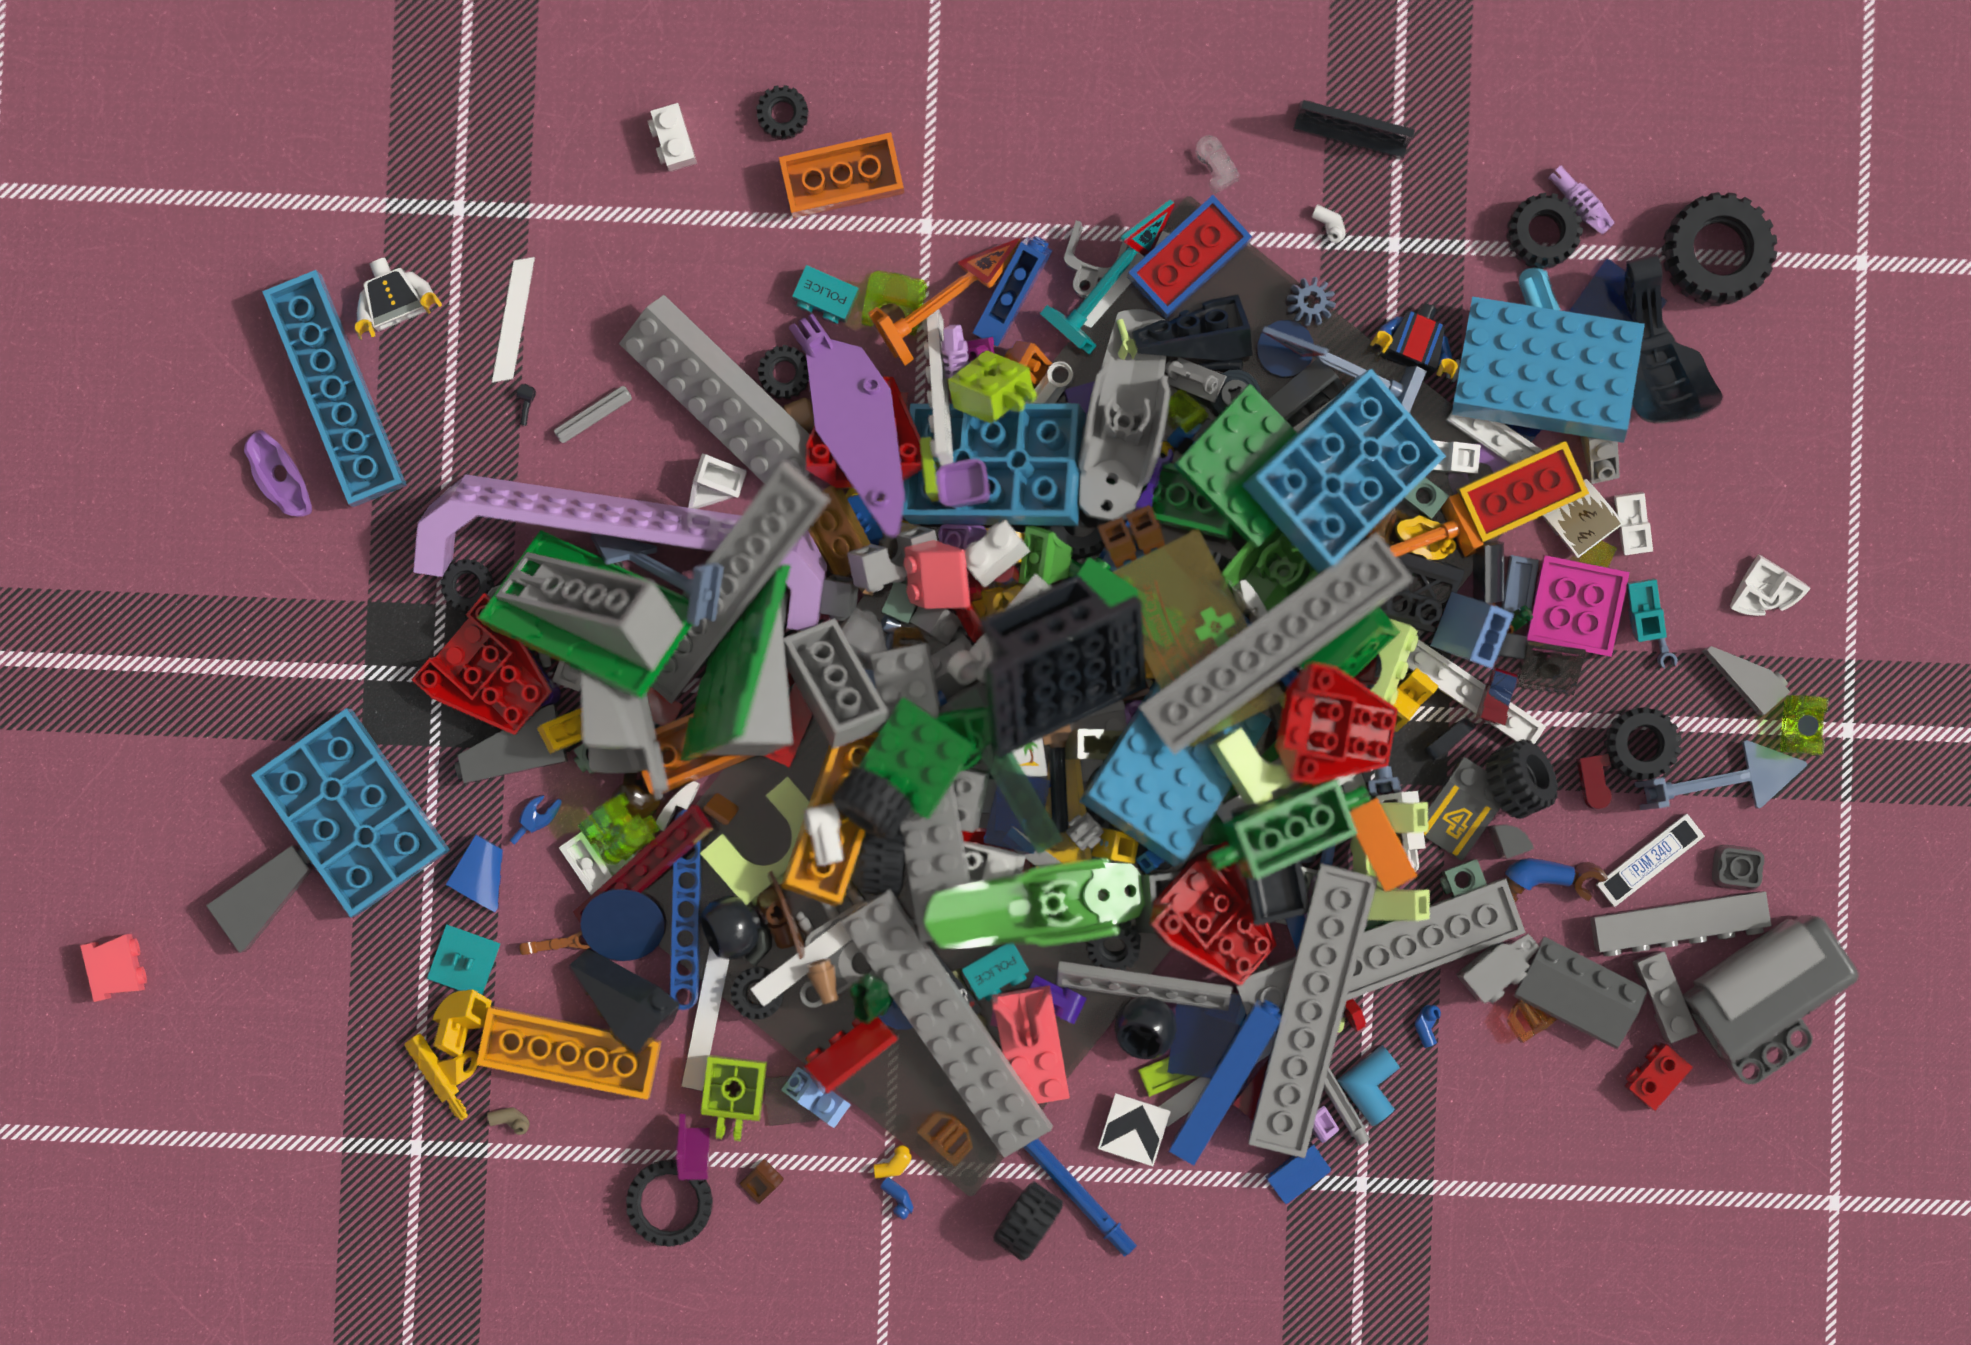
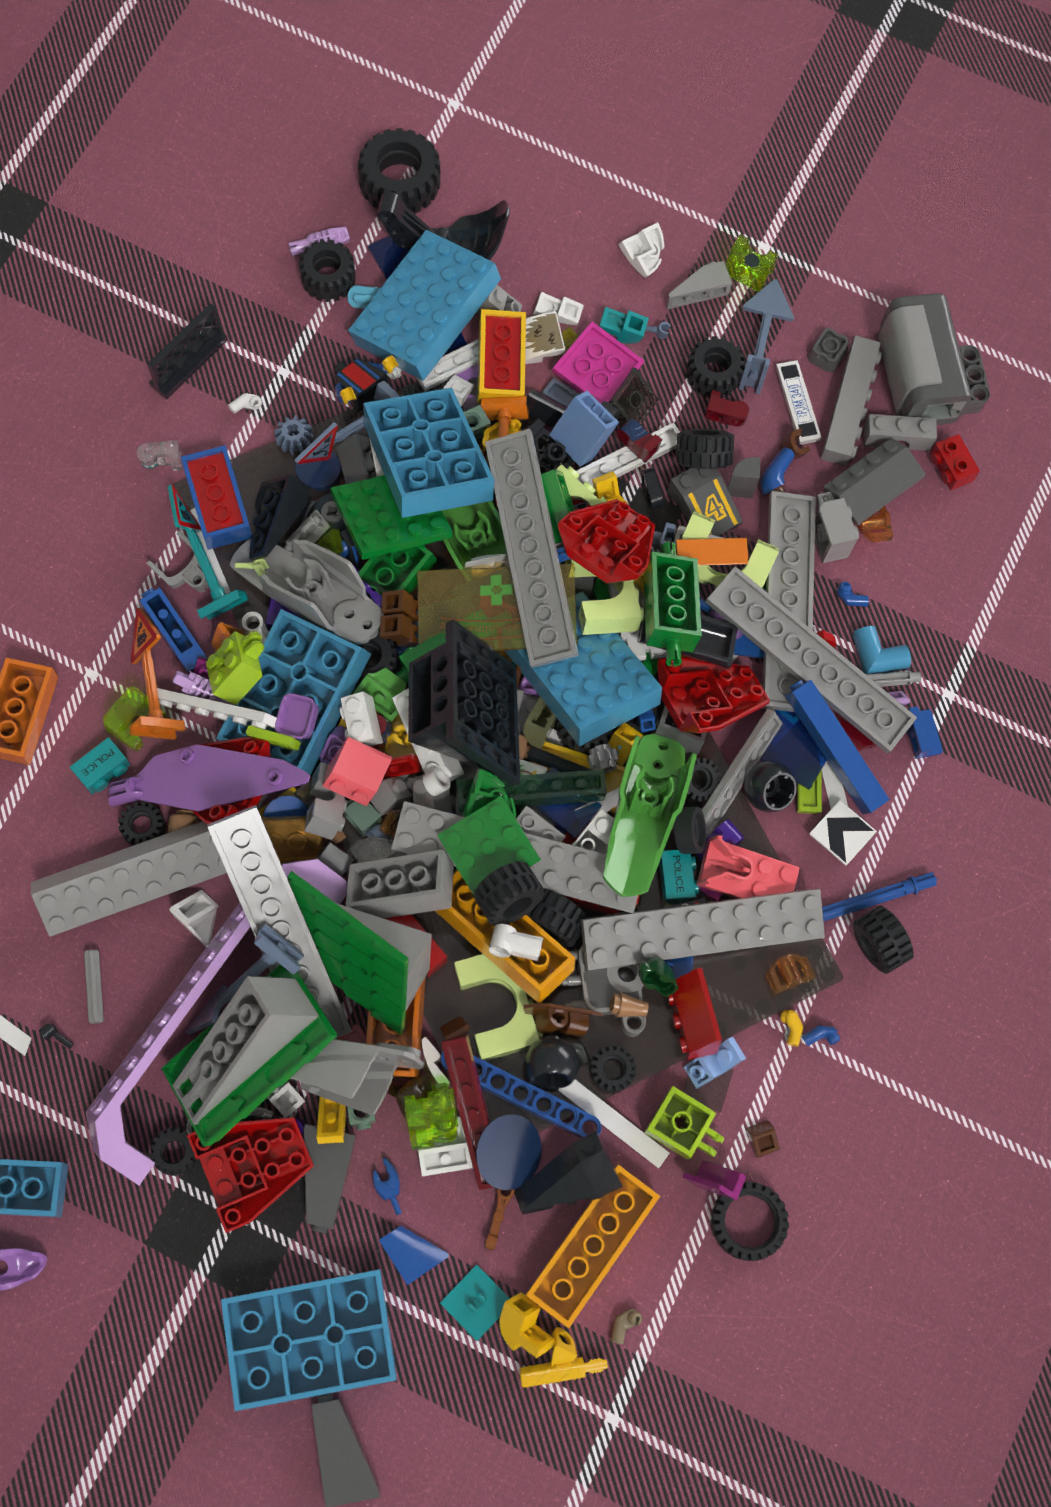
camera: 70 degrees left, 15 degrees down
(796, 968) = (607, 1025): white sticker -> none
(1043, 963) = (690, 831): none -> black tyre
(1474, 873) = (757, 515): sand green brick -> none

